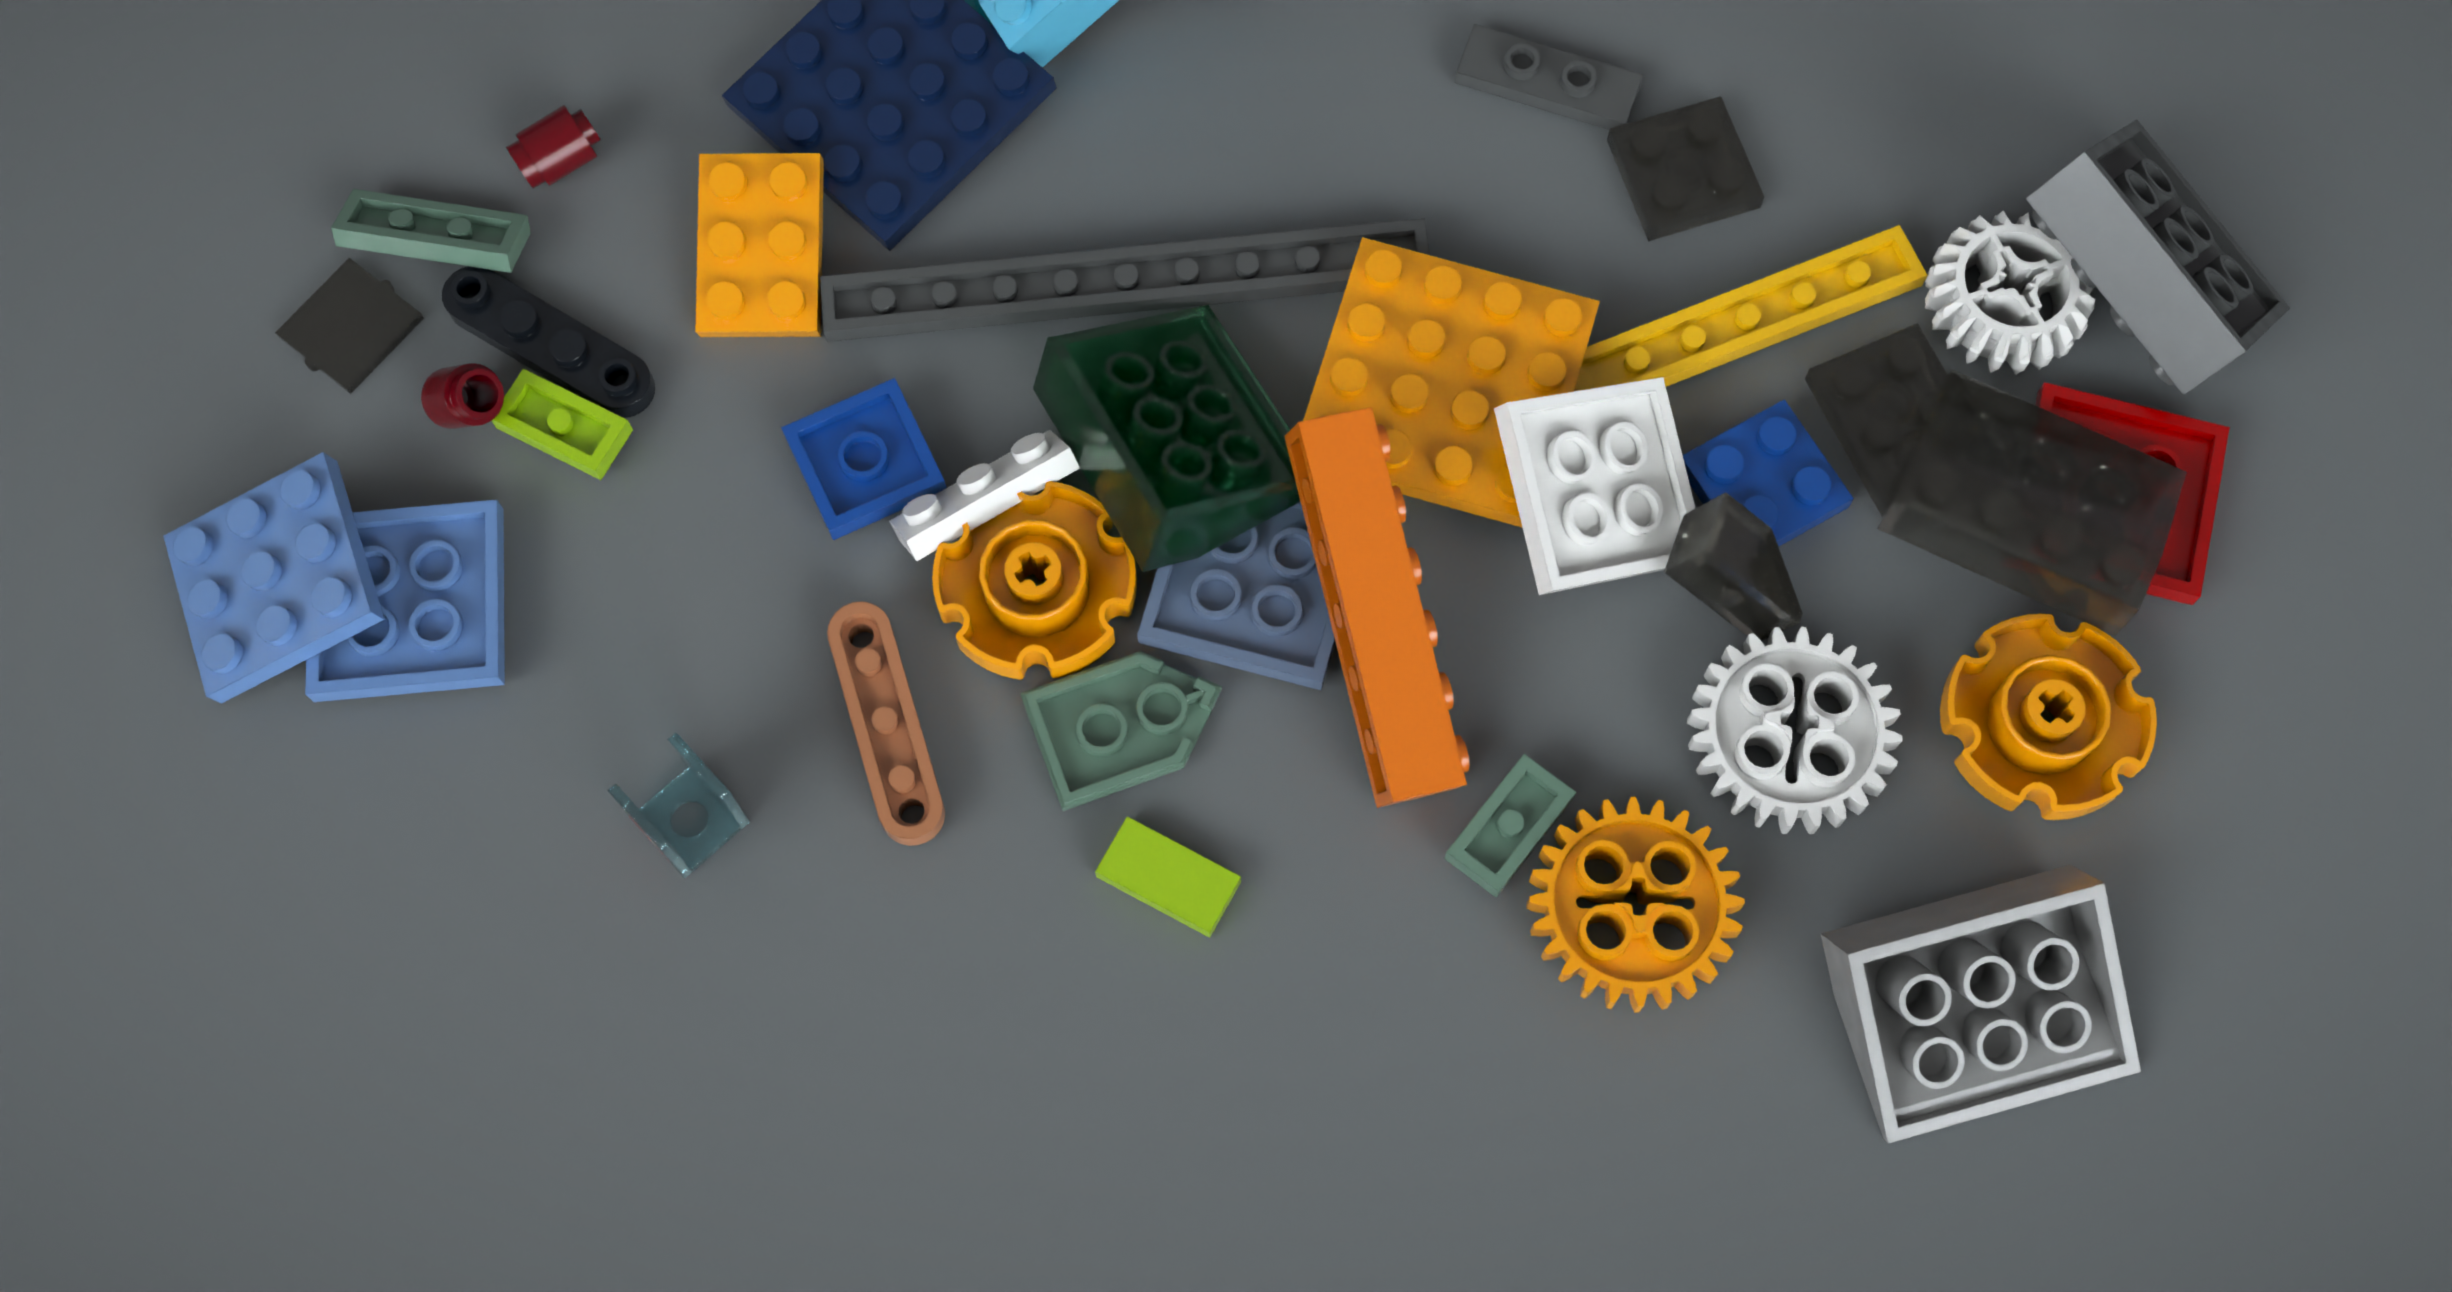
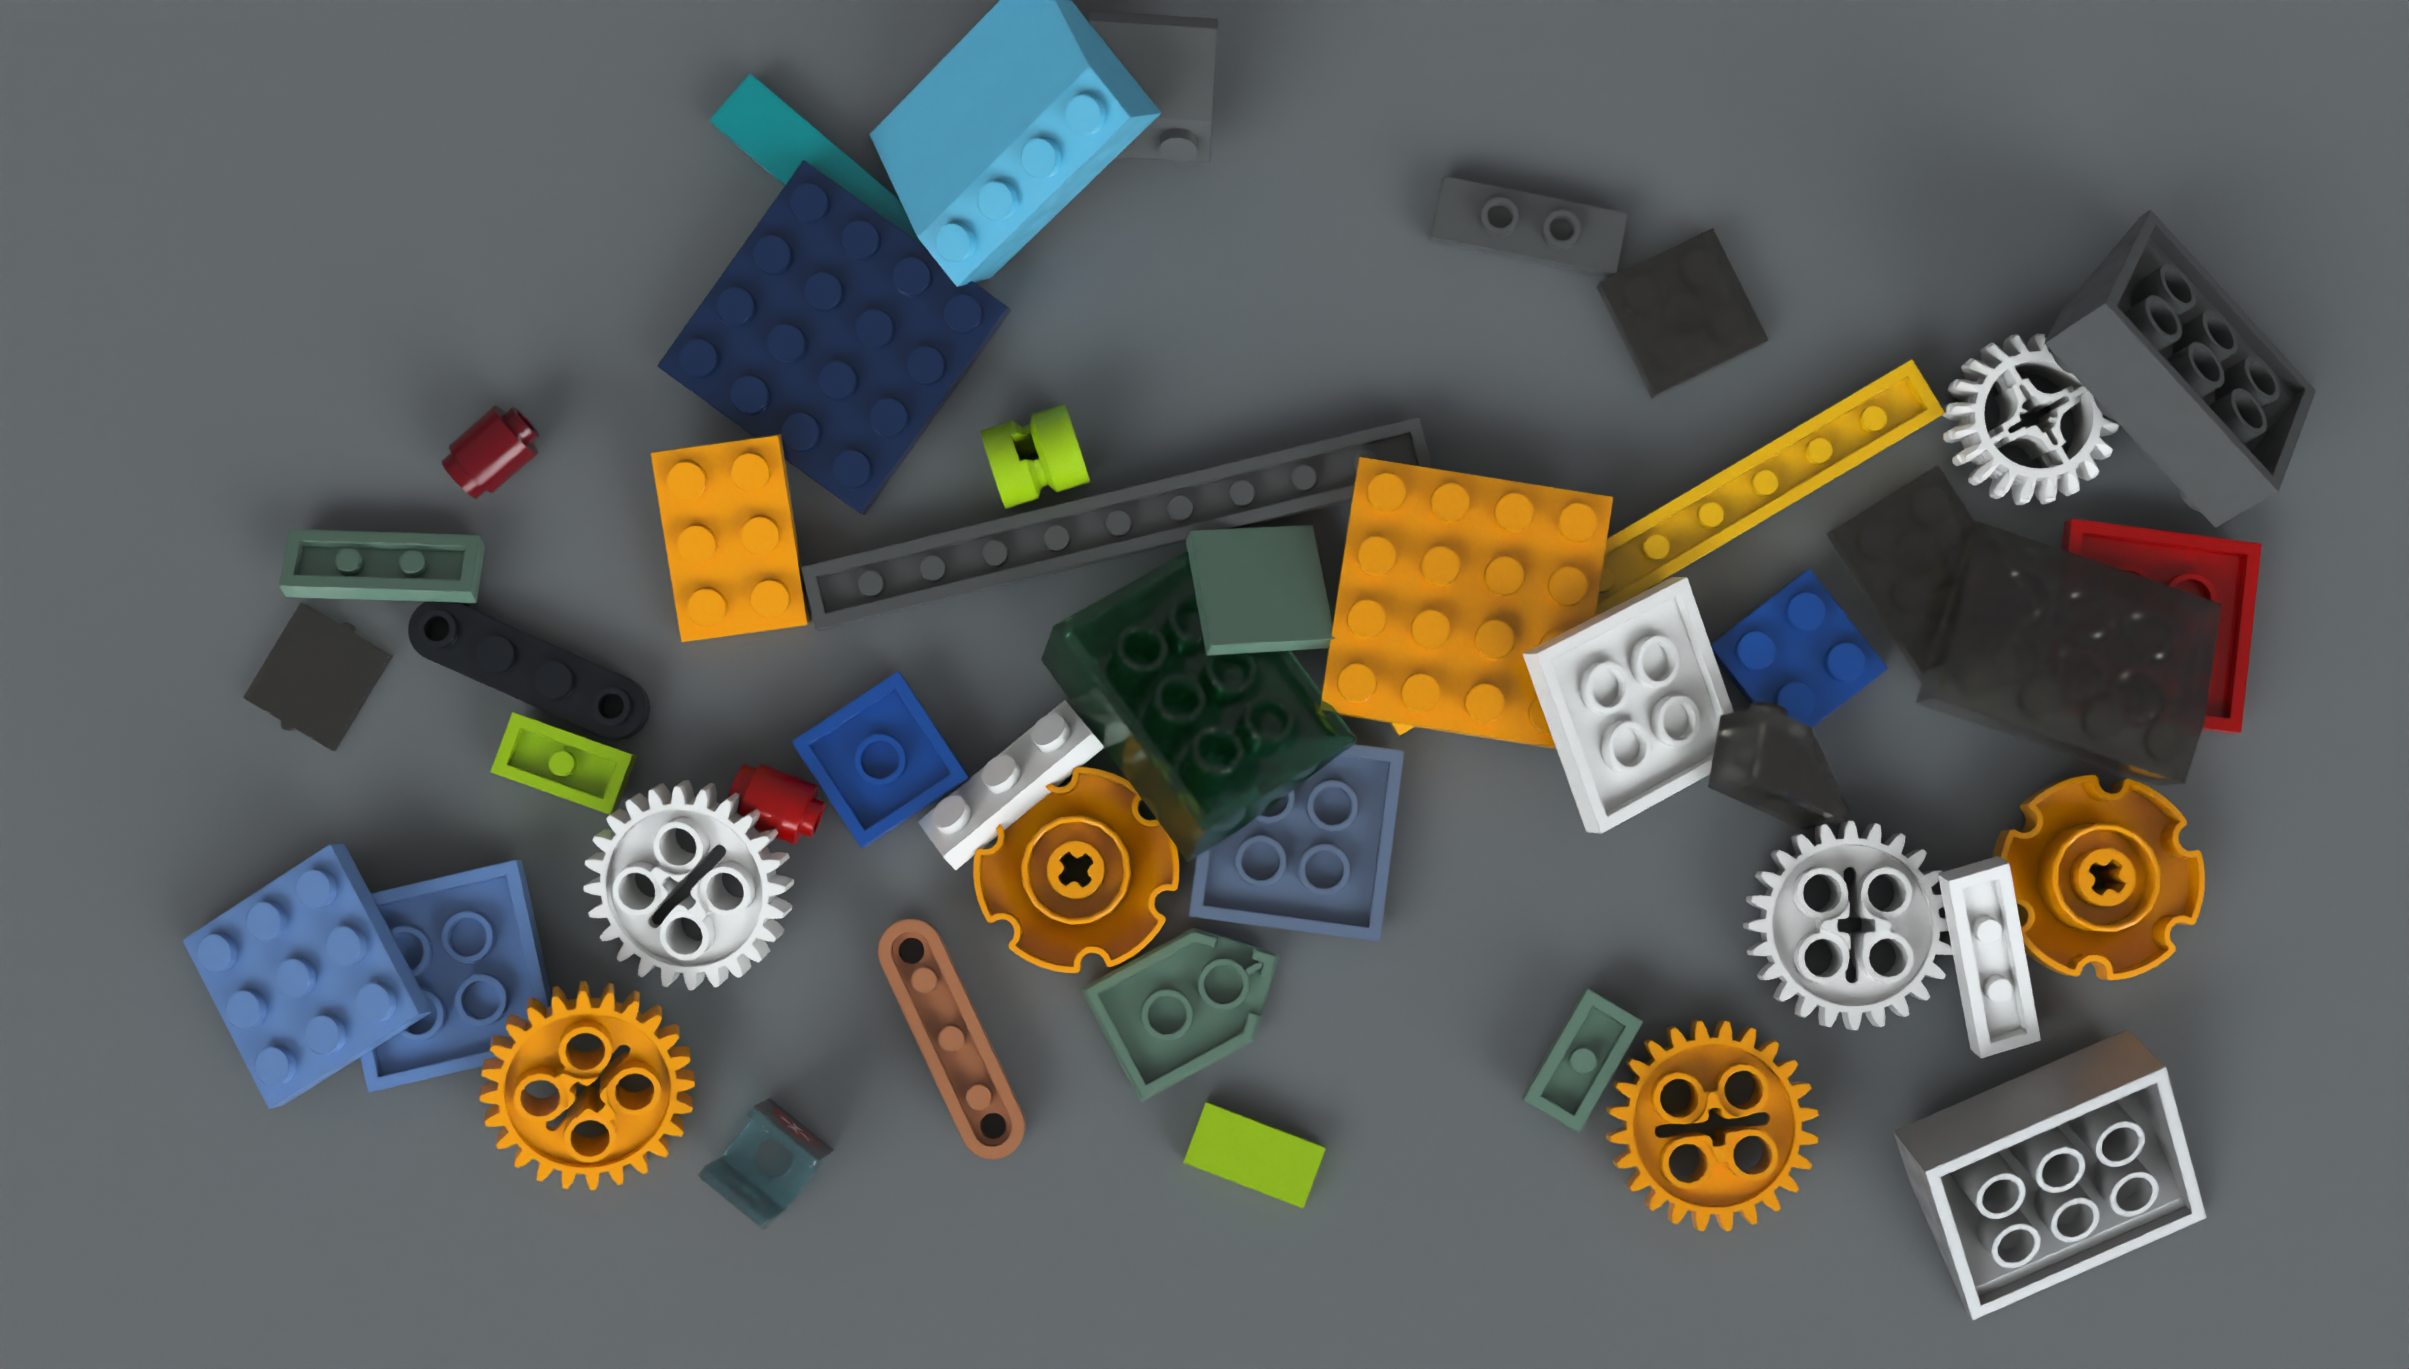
camera: 10 degrees left, 15 degrees up
(462, 396) = (457, 754): dark red brick -> none
(485, 666) = (543, 1052): none -> light orange gear
(627, 499) = (730, 925): none -> white gear
(754, 482) = (782, 799): none -> red brick
(1057, 207) = (1058, 451): none -> lime wheel
(1250, 345) = (1259, 589): none -> sand green tile
(1376, 607) = (1426, 868): orange brick -> none
(1932, 772) = (1989, 956): none -> white plate

